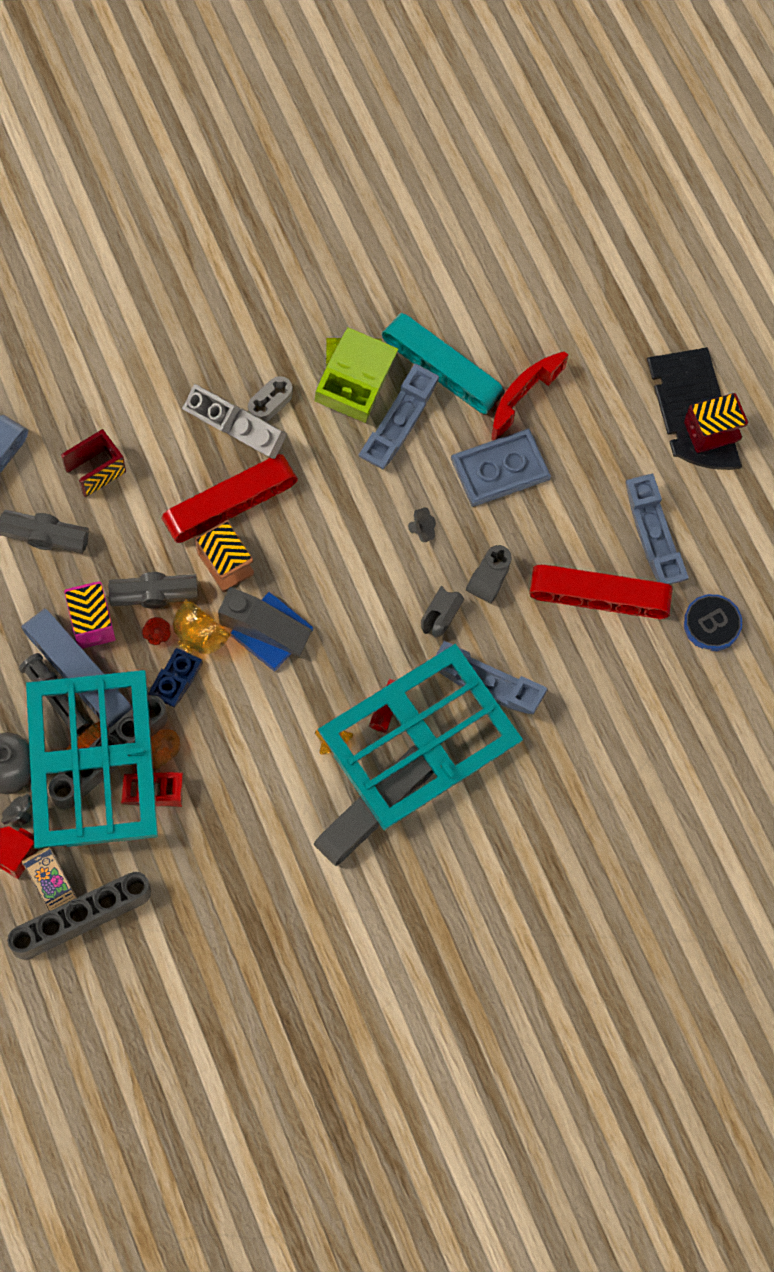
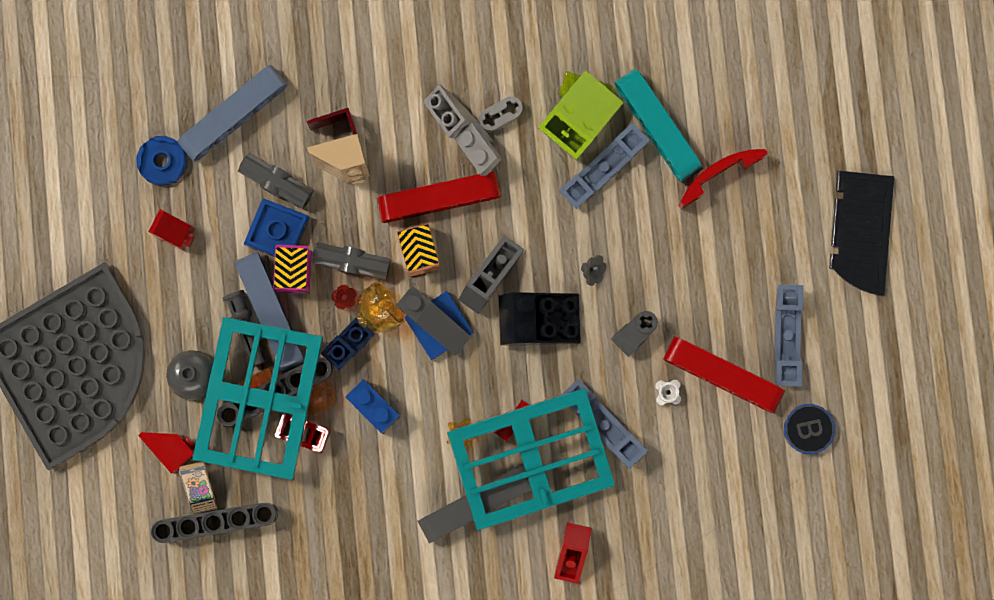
camera: 20 degrees right, 15 degrees up
(17, 810) = (188, 419): dark grey plant -> none
(52, 576) = (275, 226): none -> blue tile
(110, 480) = (342, 159): none -> tan slope
(224, 734) = (373, 407): none -> blue brick
(311, 562) = (490, 274): none -> dark grey slope
(378, 591) = (539, 319): none -> black slope
(441, 612) = (585, 350): dark grey piece -> none
(500, 467) = (677, 235): sand blue tile -> none
(500, 827) = (572, 552): none -> red slope
(548, 620) = (674, 396): none -> white plate
(715, 422) = (874, 253): piece -> none

